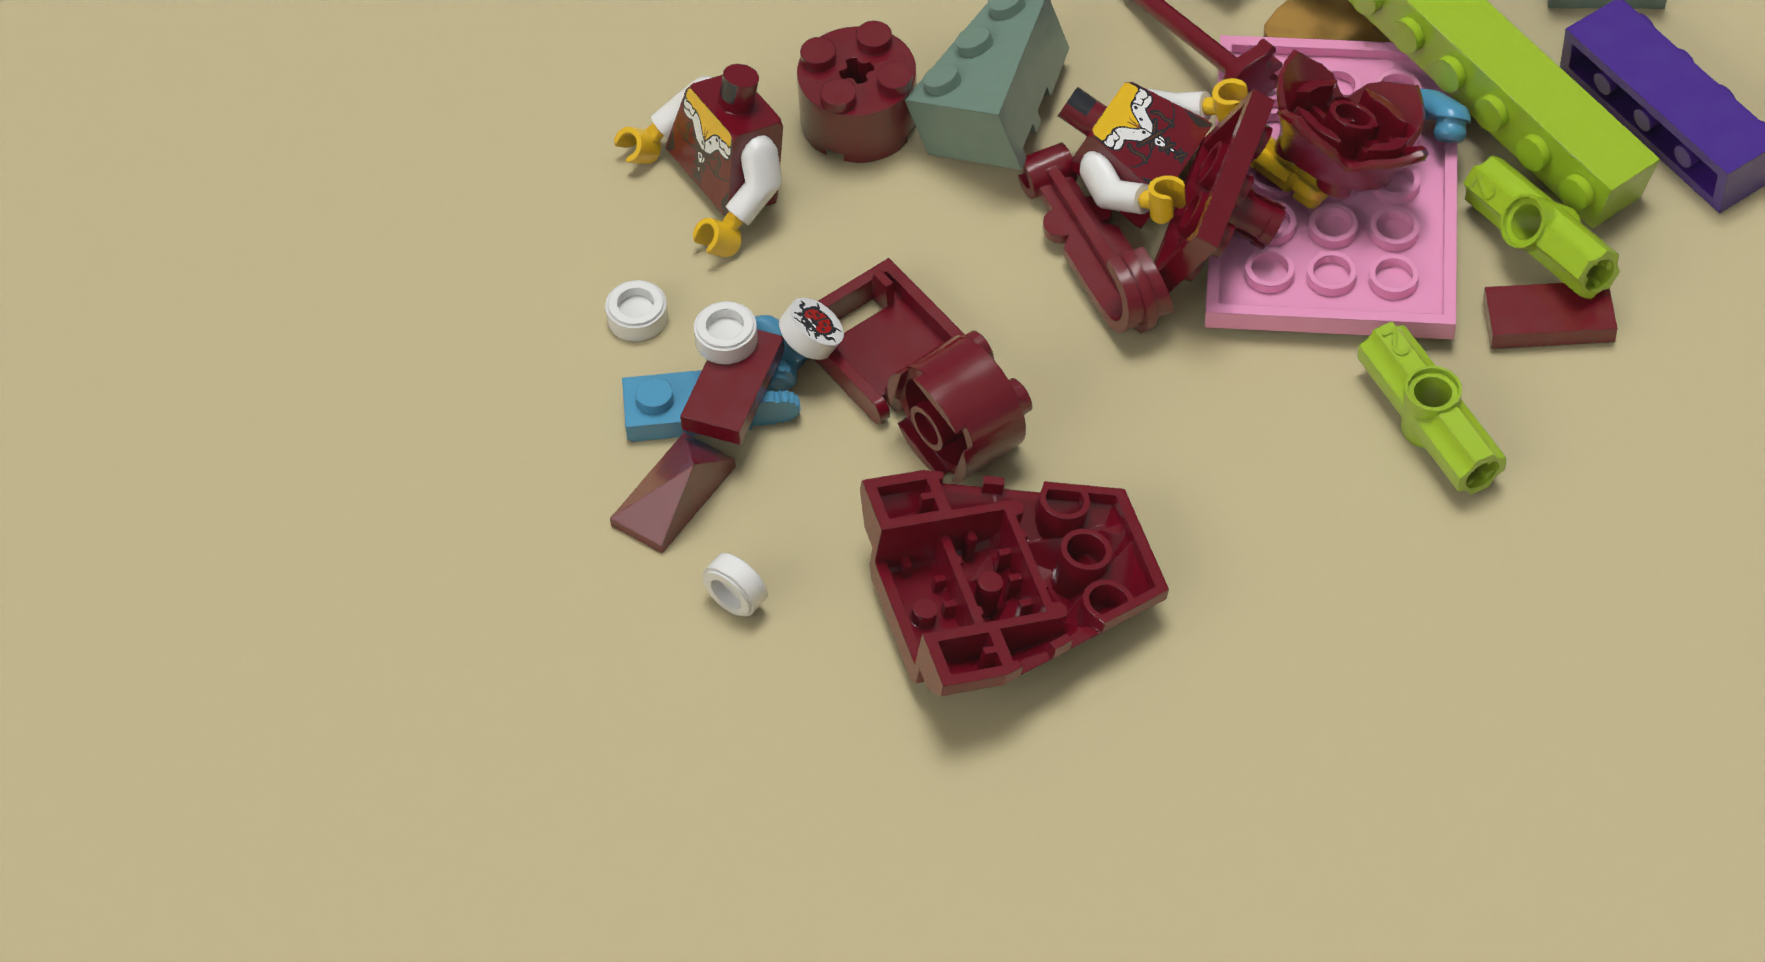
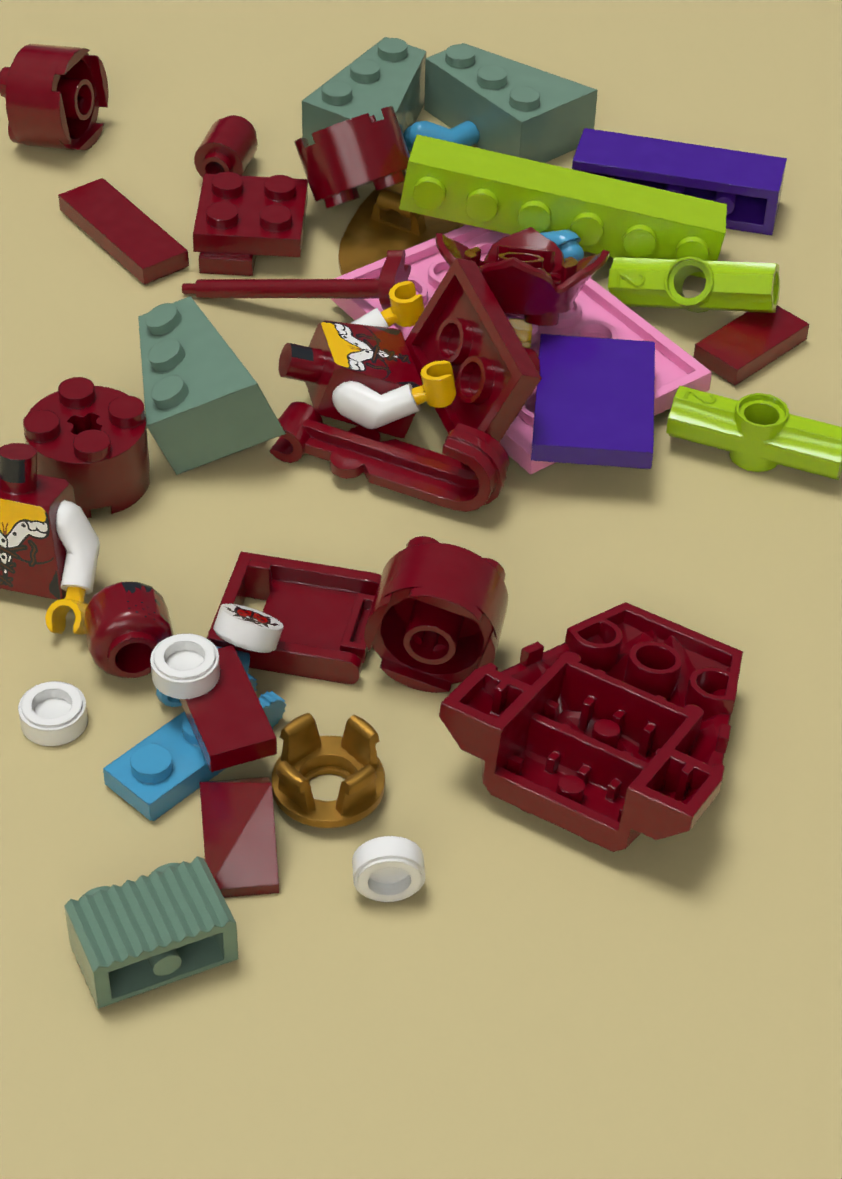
camera: 45 degrees left, 10 degrees down
(535, 522) = (151, 931): none -> sand green brick
(738, 270) = (124, 628): none -> dark red head
(769, 461) = (311, 755): none -> pearl gold piece
(1307, 291) = (595, 402): none -> dark purple tile

